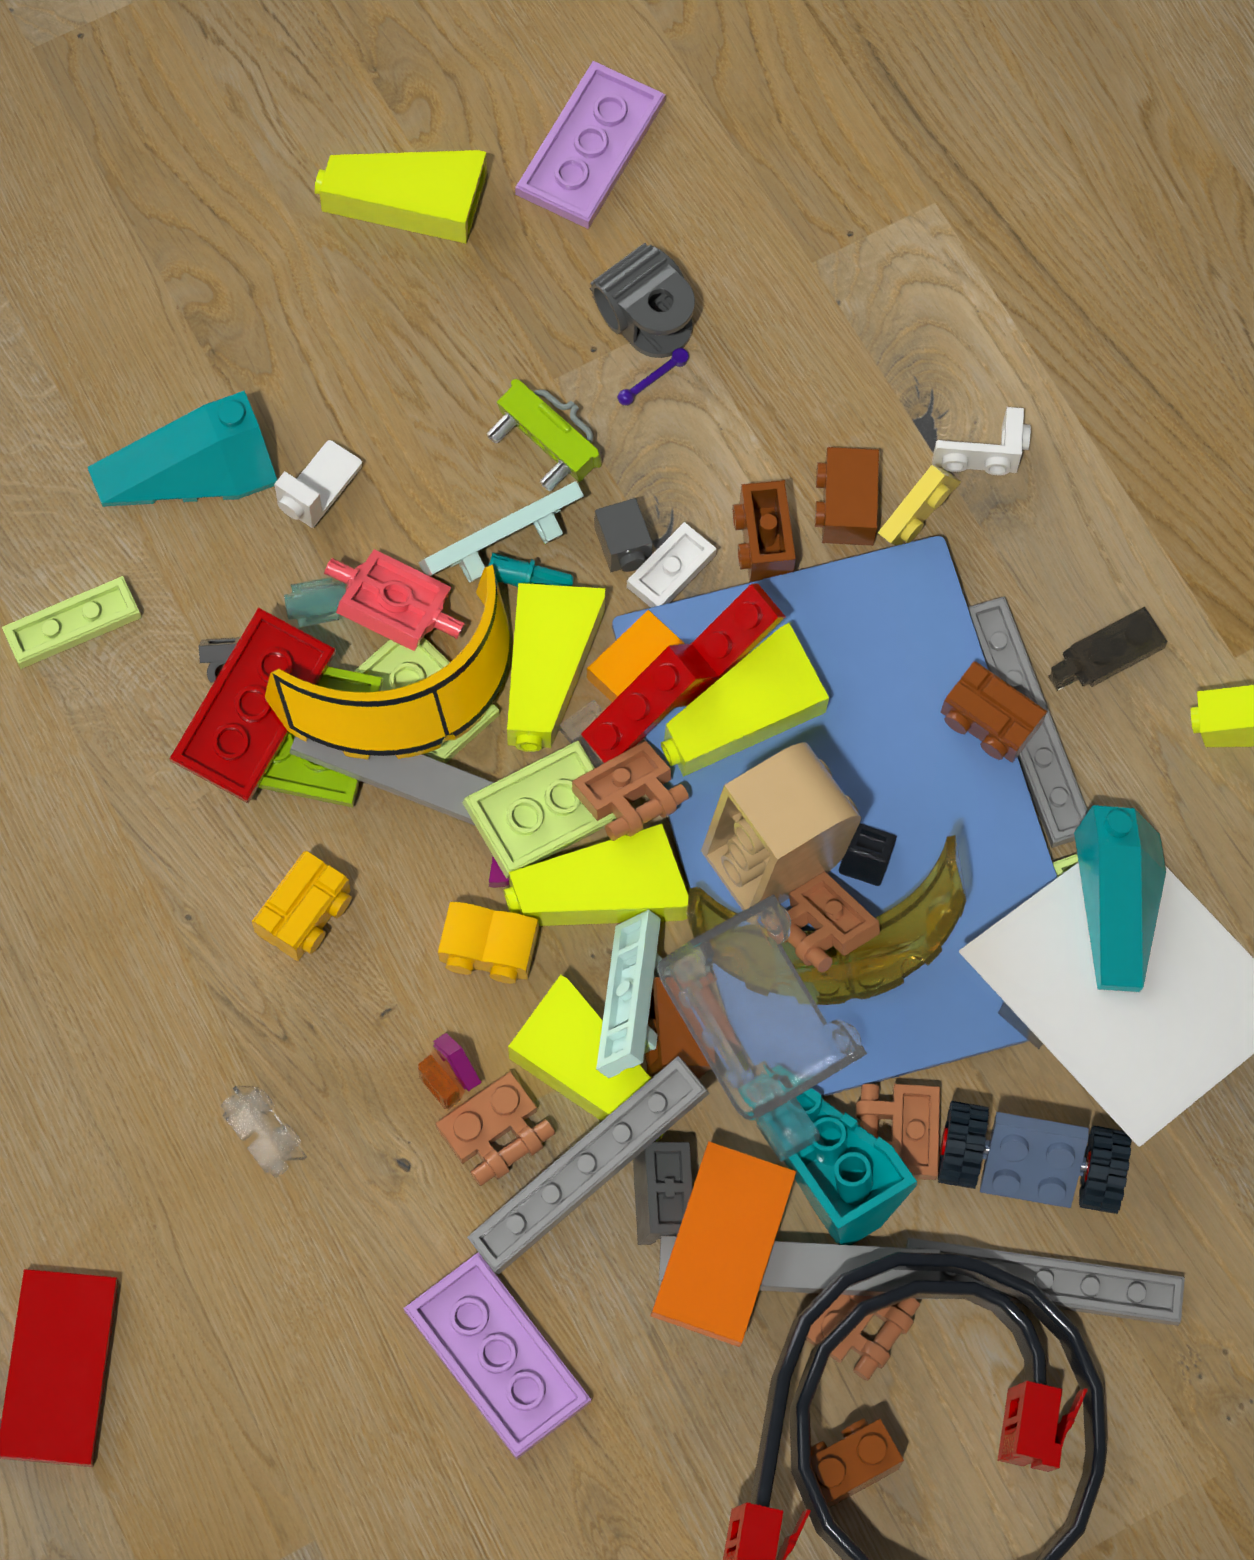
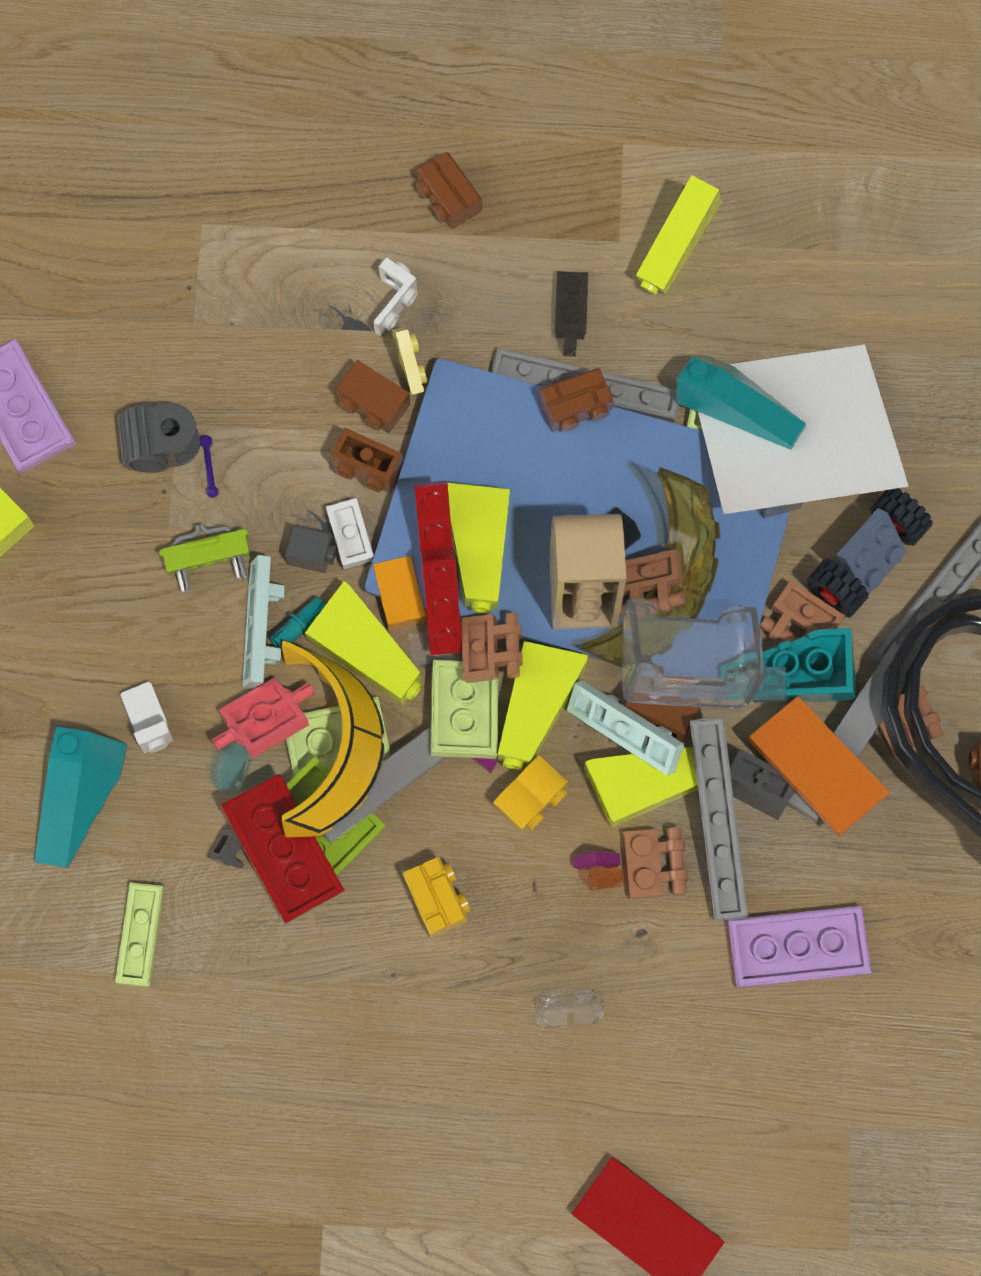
camera: 55 degrees left, 5 degrees up
(1158, 431) = (449, 190): none -> dark orange brick

